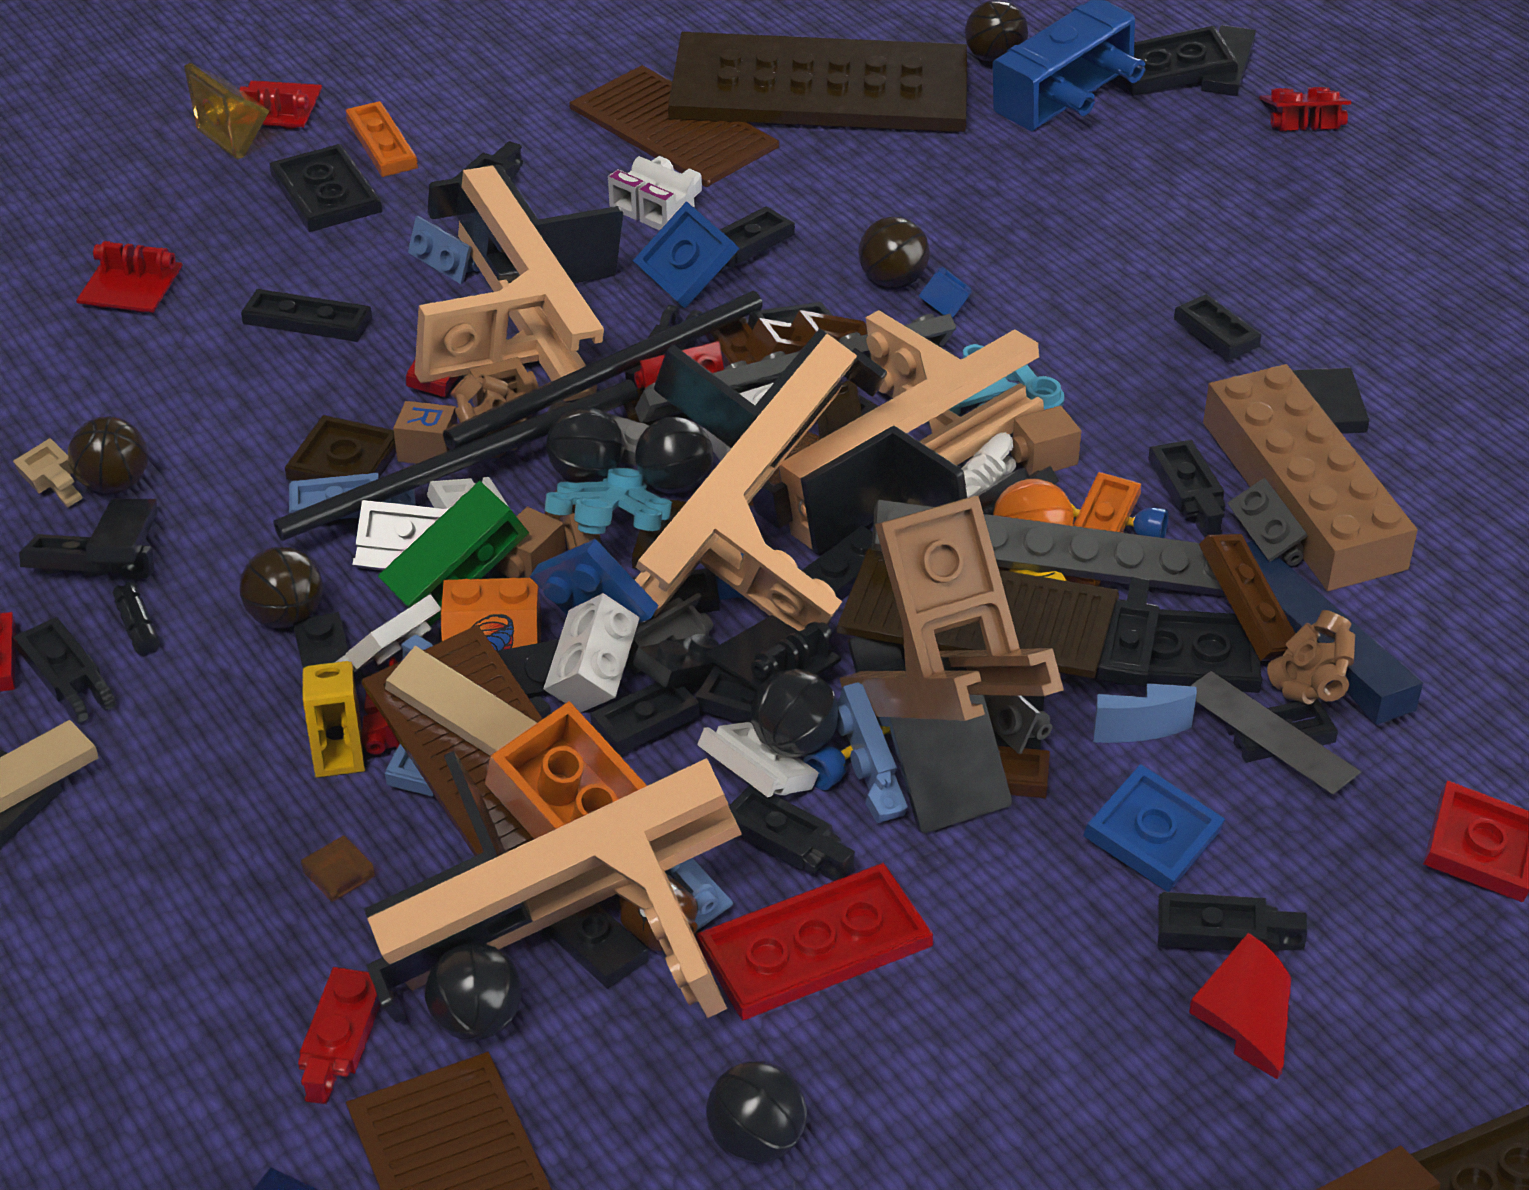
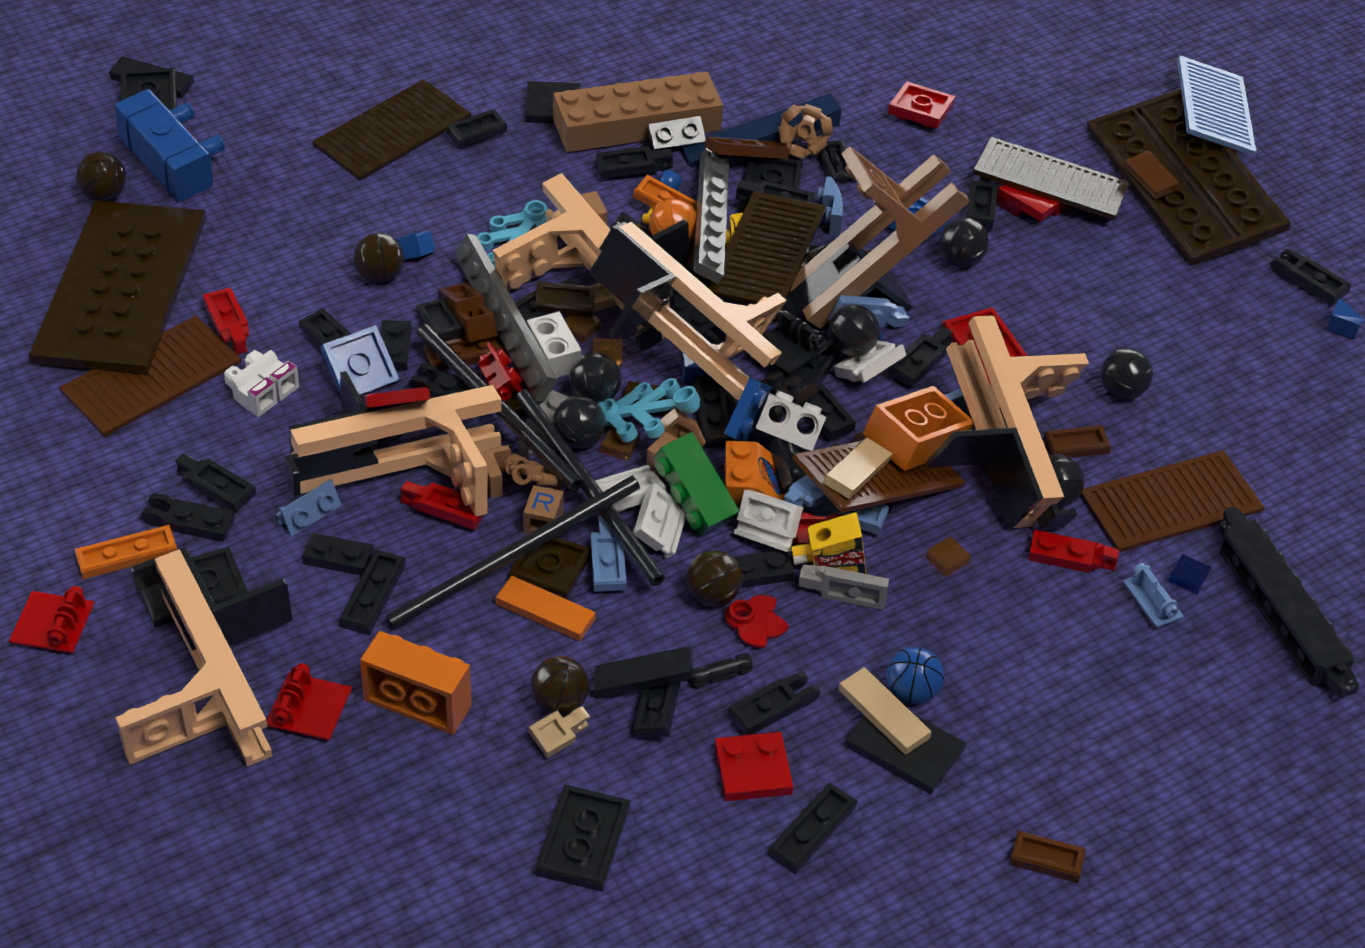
camera: 90 degrees left, 5 degrees up
(72, 804) = (915, 675): none -> blue piece
(123, 335) = (416, 682): none -> orange brick
(223, 650) = (756, 620): none -> red plate
(224, 111) = (86, 642): clear yellow slope -> none
(224, 1143) = (1152, 596): none -> medium blue hinge
(247, 162) = (208, 634): none -> light nougat piece
(263, 455) = (545, 608): none -> orange tile
(272, 734) = (845, 585): none -> light grey hinge
(346, 406) = (512, 552): none -> black piece
(371, 280) = (337, 554): none -> black plate
(429, 167) = (188, 517): none -> black hinge
(589, 262) = (396, 397): none -> red tile
(605, 1054) = (1078, 441): none -> reddish brown tile
(726, 288) = (397, 341): none -> black plate
(768, 159) = (228, 318): none -> red hinge
(1074, 876) = (964, 242): none -> black piece
(1201, 260) = (391, 129): none -> dark brown window
(1274, 733) = (836, 167): flat silver sticker -> none
(1293, 108) = (226, 48): red hinge -> none
(1320, 1034) = (1051, 178): none -> window

